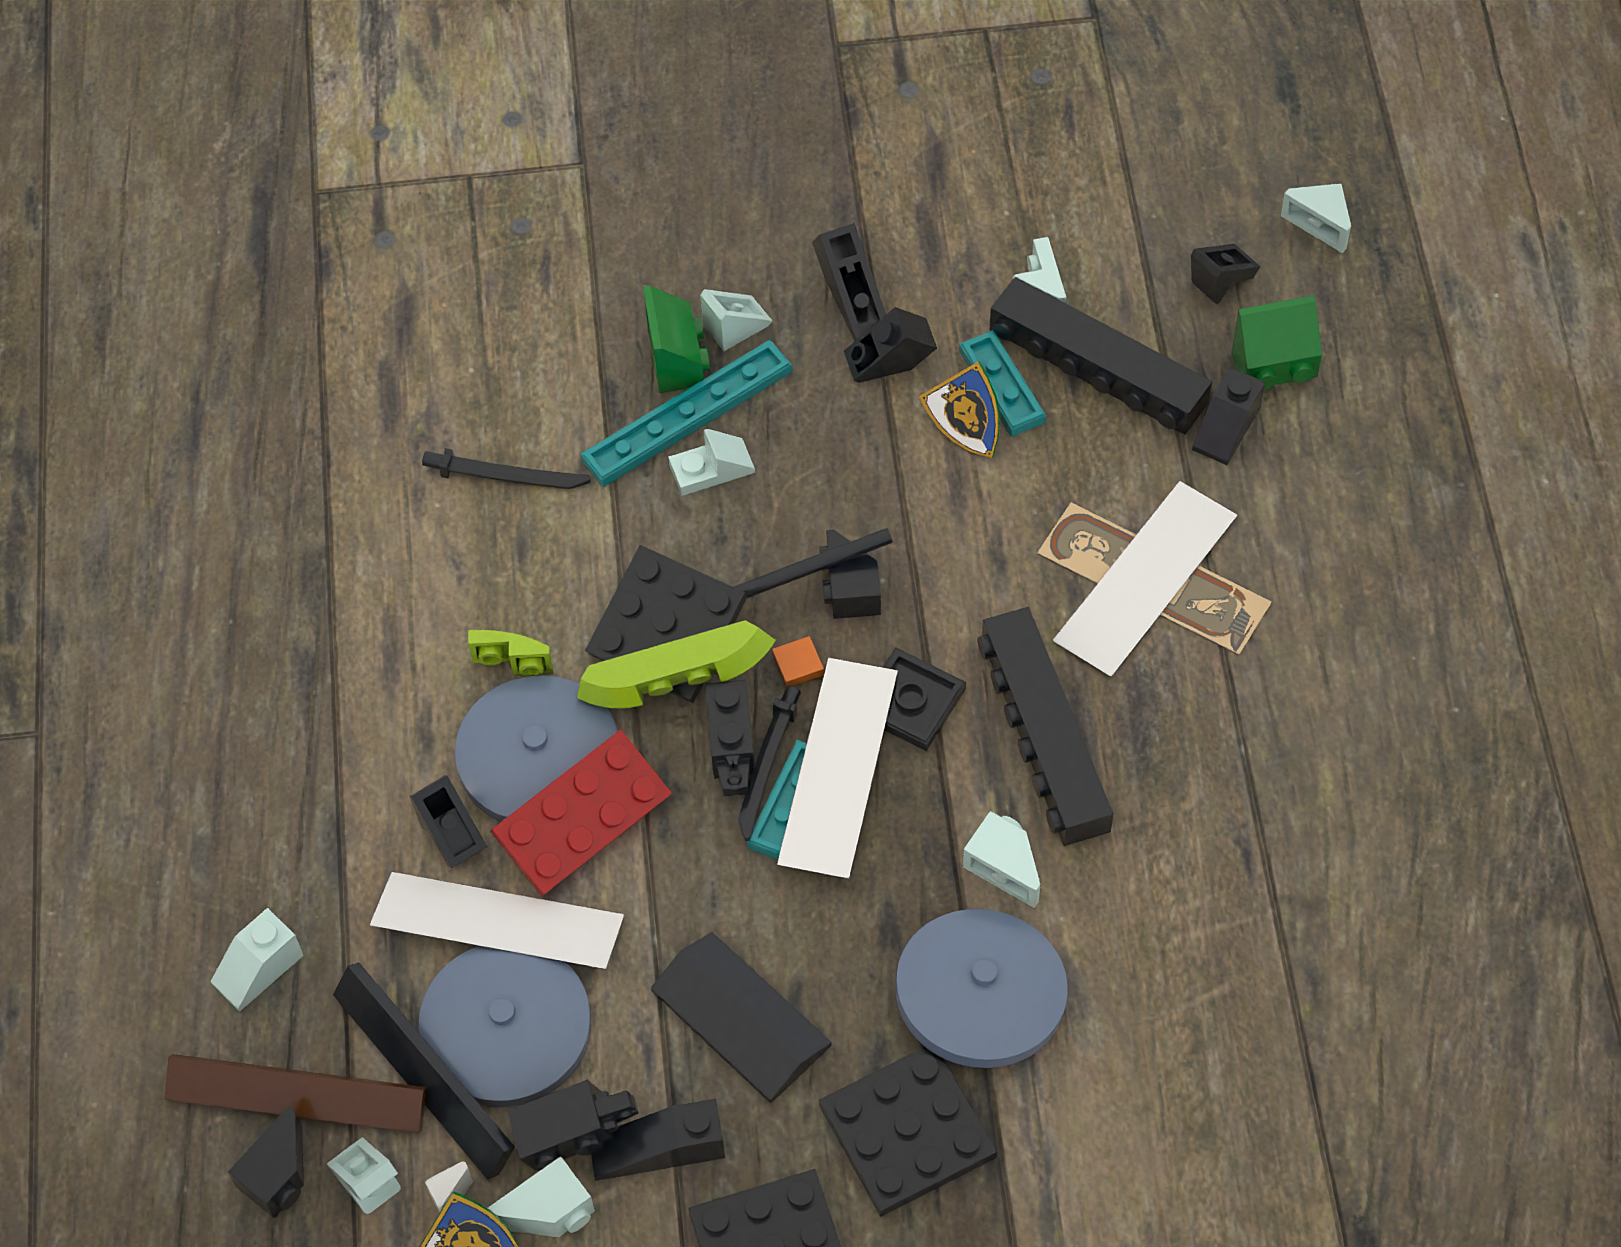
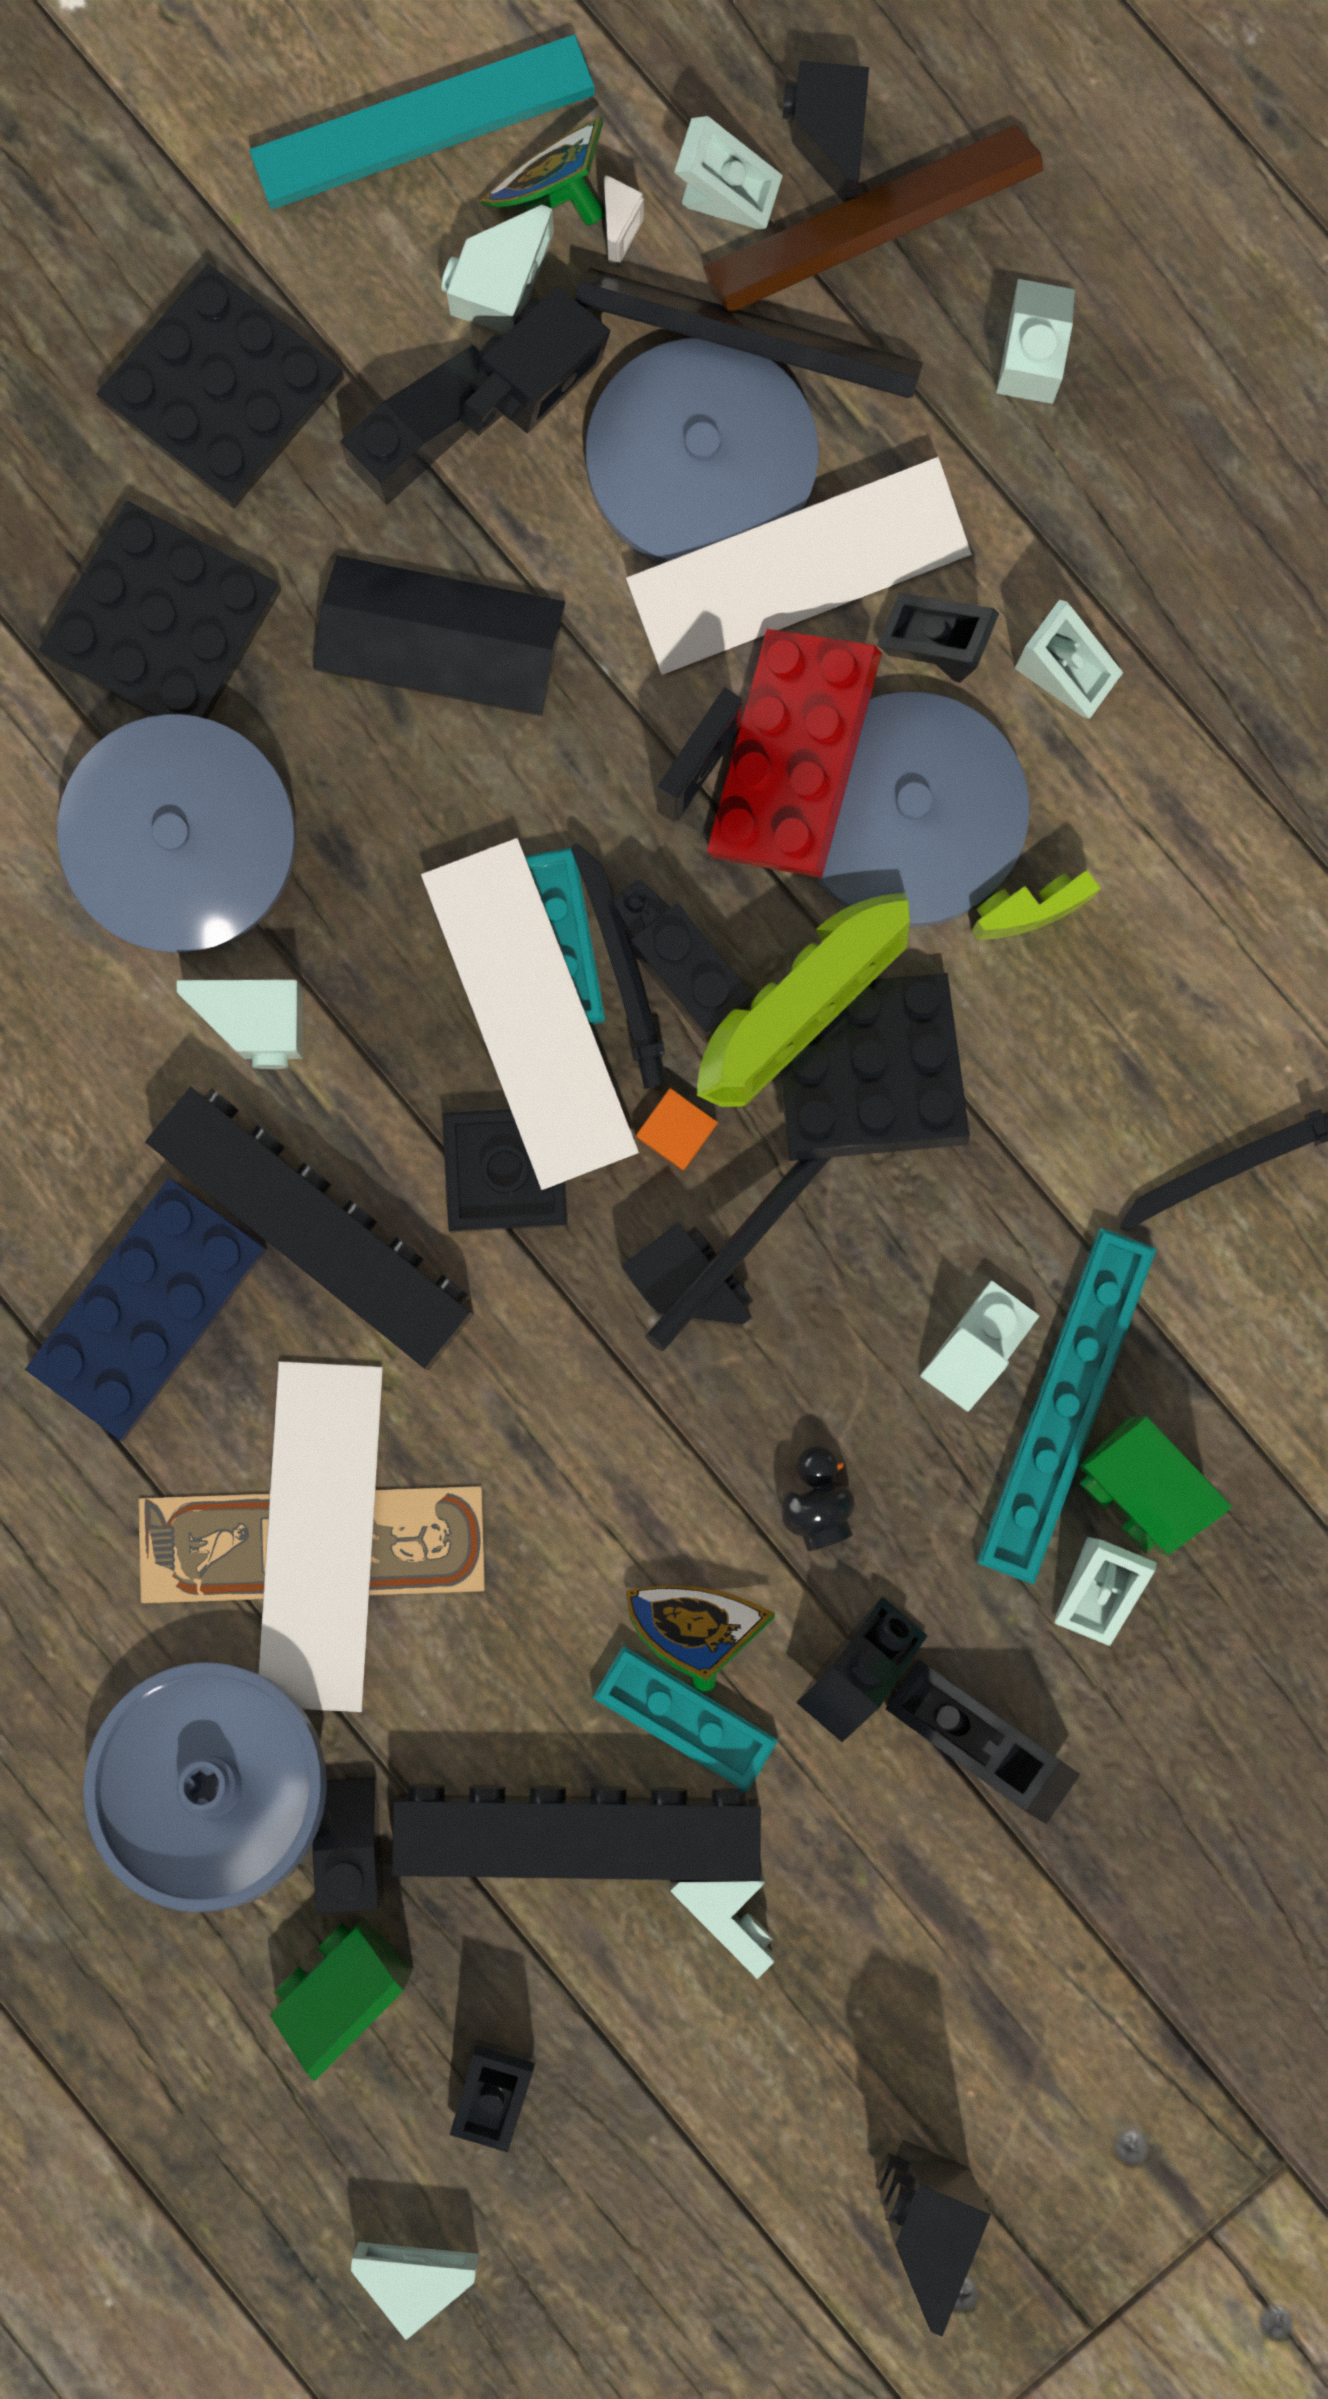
camera: 140 degrees right, 25 degrees up
(388, 774) = (1069, 661): none -> light aqua slope
(639, 831) = (699, 756): none -> black tile
(855, 432) = (822, 1512): none -> black animal
(1032, 85) = (934, 2223): none -> black slope
(1172, 744) = (145, 1309): none -> dark blue plate
(1290, 479) = (204, 1787): none -> sand blue dish

